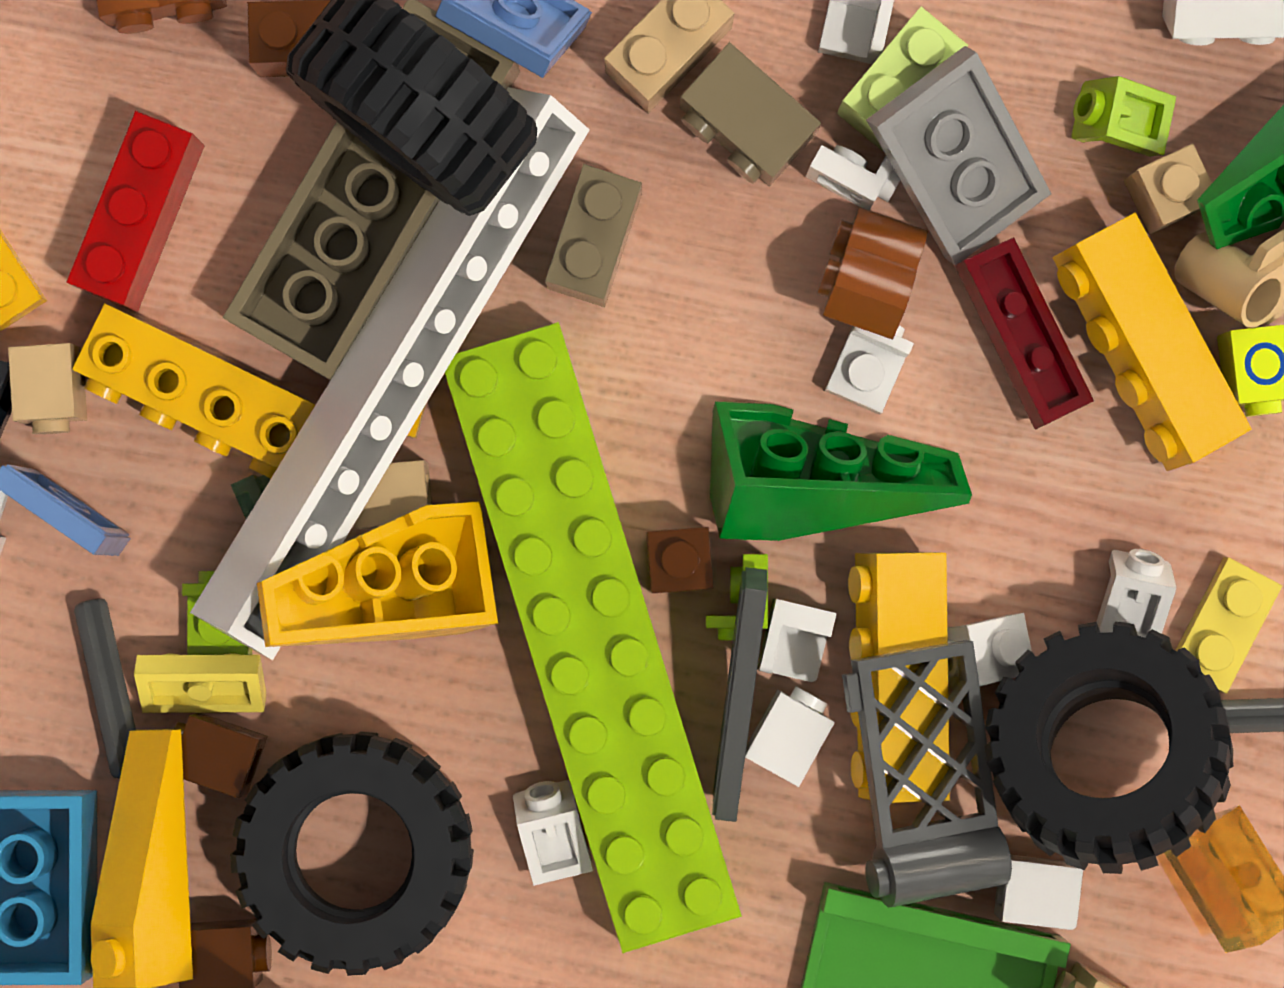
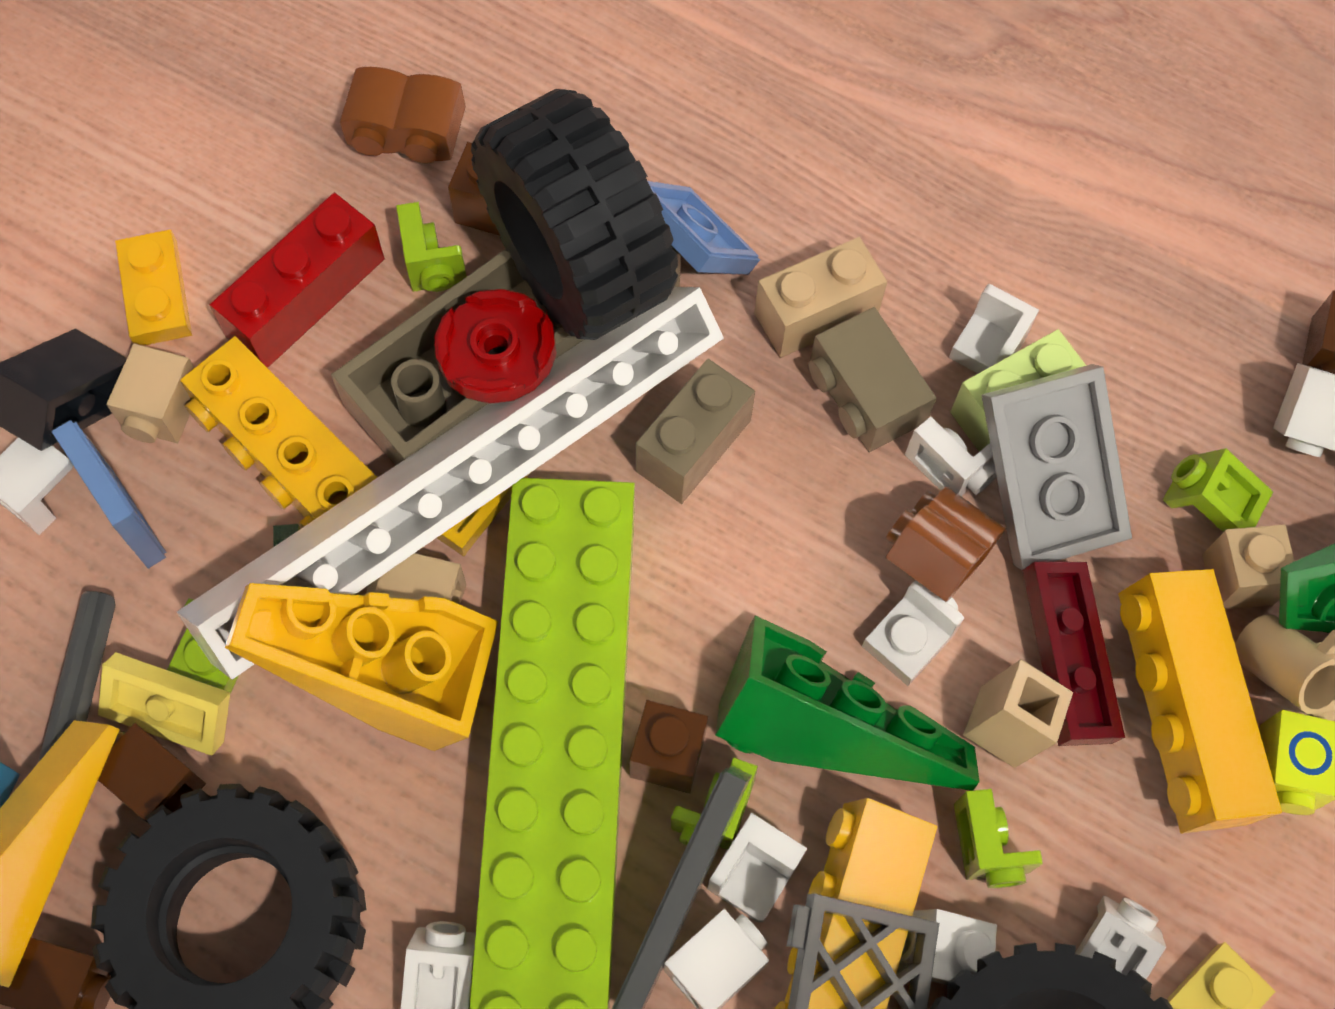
camera: 20 degrees right, 20 degrees down
(239, 125) = (426, 263): none -> lime bracket
(355, 211) = (488, 322): none -> red plate
(987, 536) = (981, 837): none -> lime bracket
(989, 418) = (1018, 714): none -> tan brick

